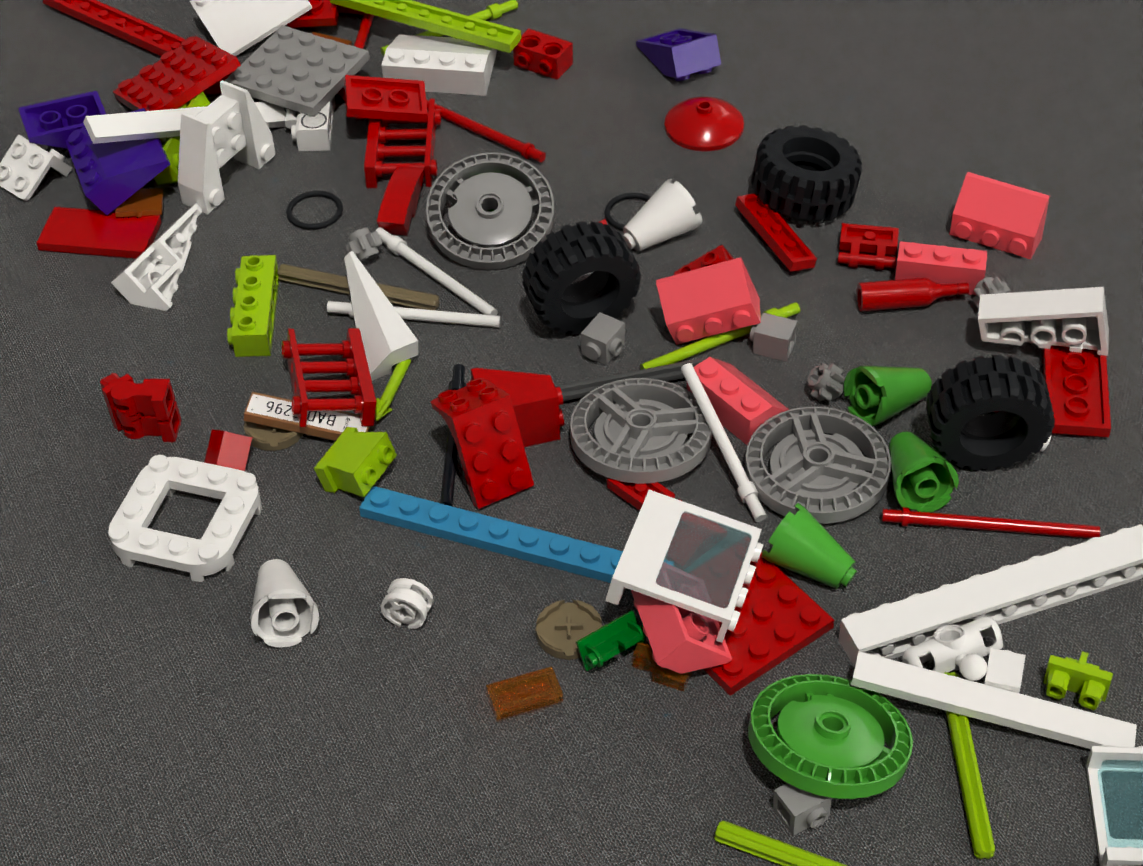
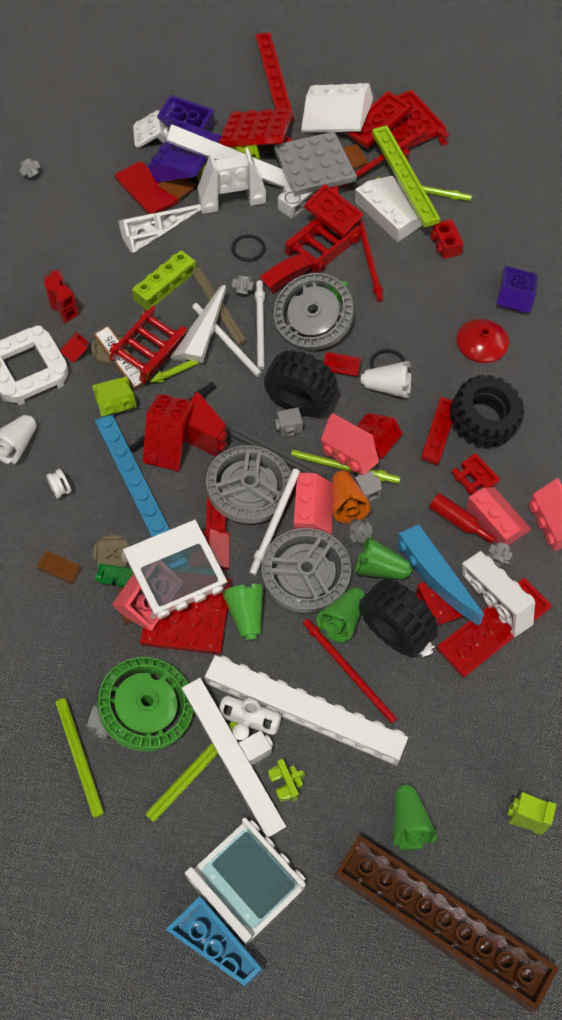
camera: 40 degrees right, 15 degrees up
(770, 358) = (348, 498): none -> orange cone
(943, 350) = (437, 573): none -> dark azure slope

